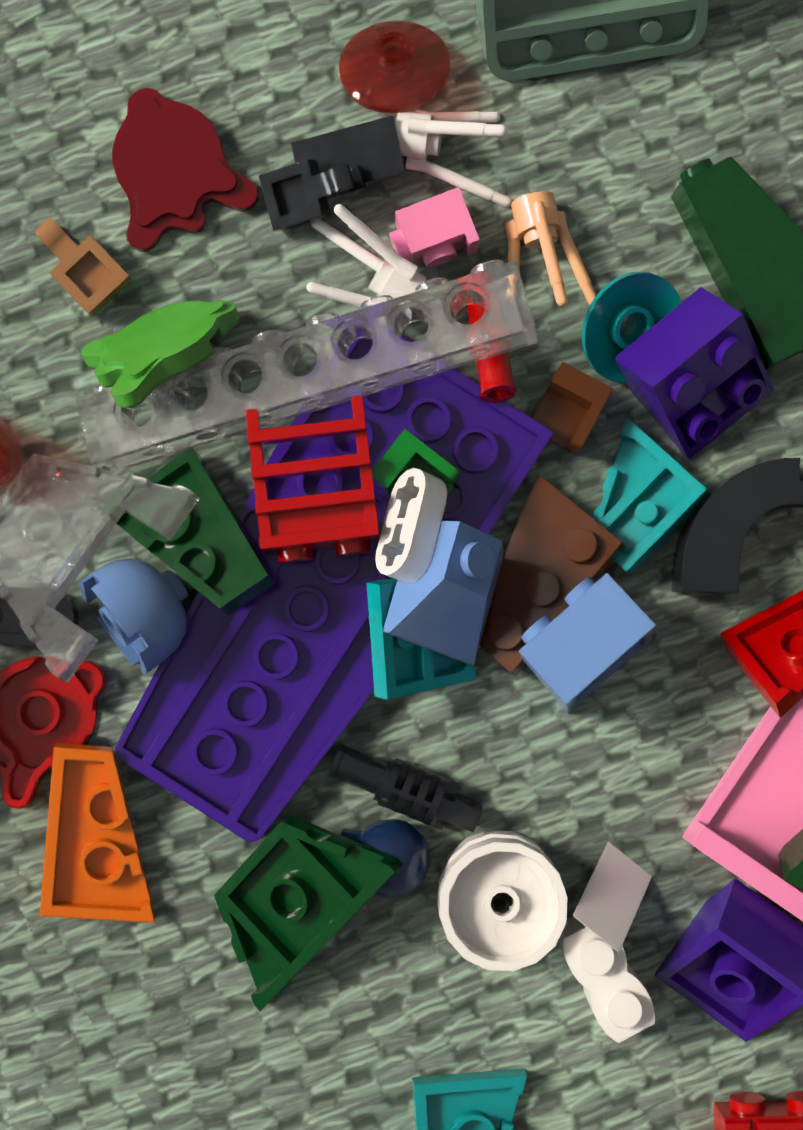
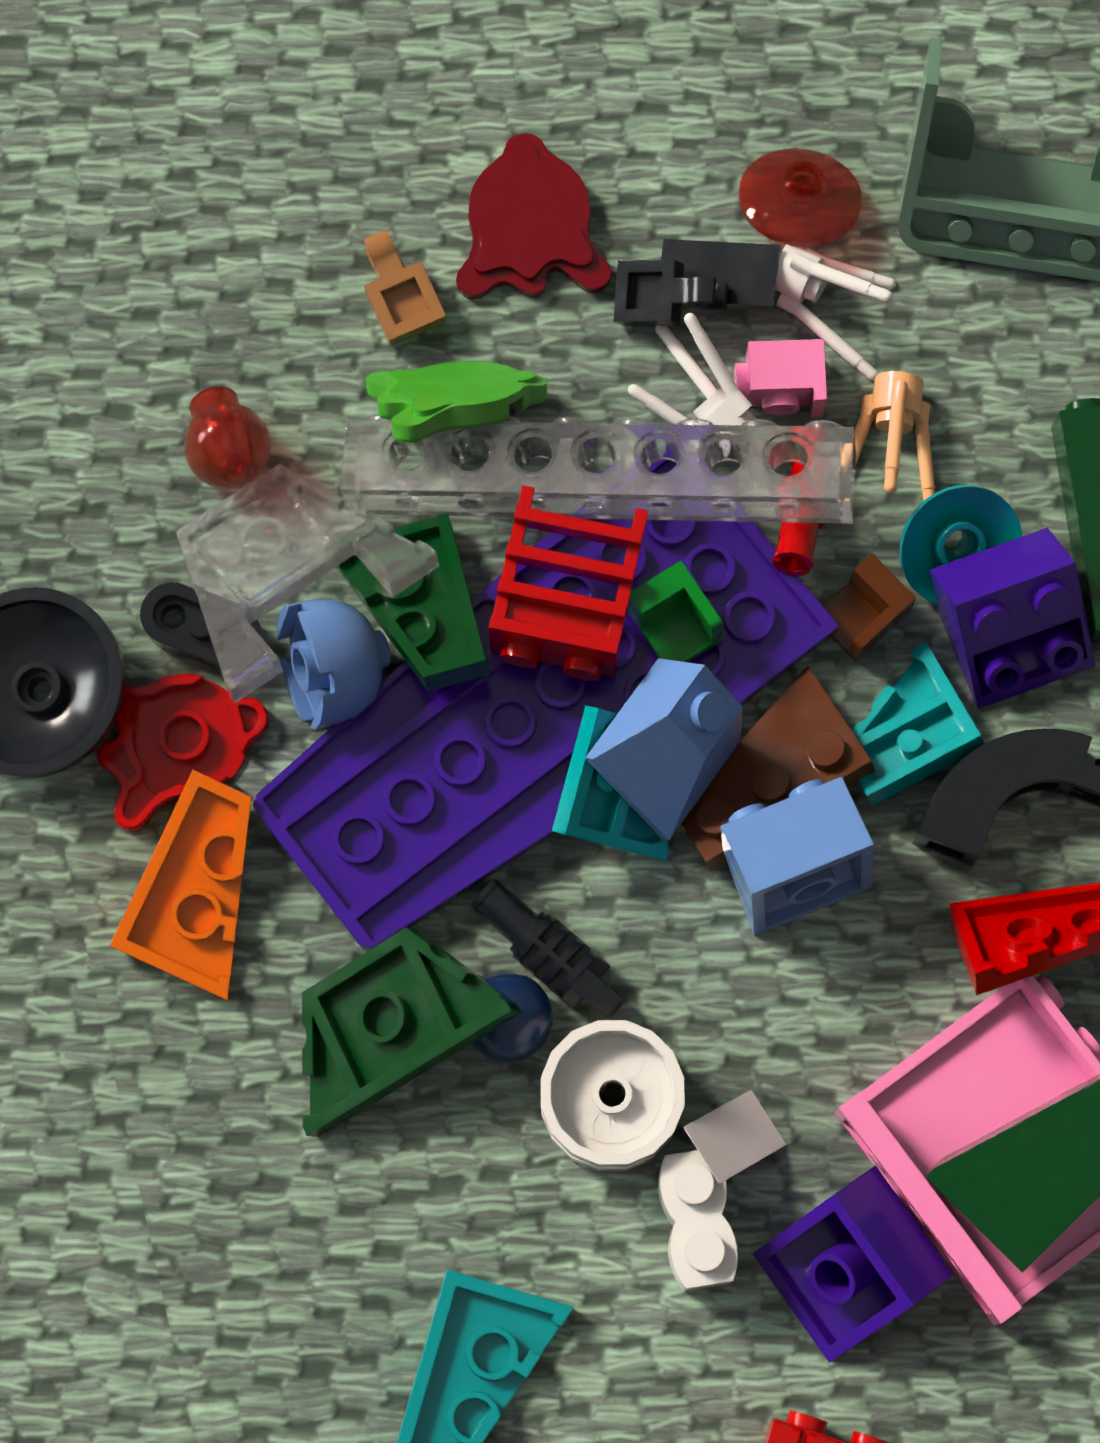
camera: 20 degrees right, 10 degrees down
(411, 526) = (652, 658): white beam -> none

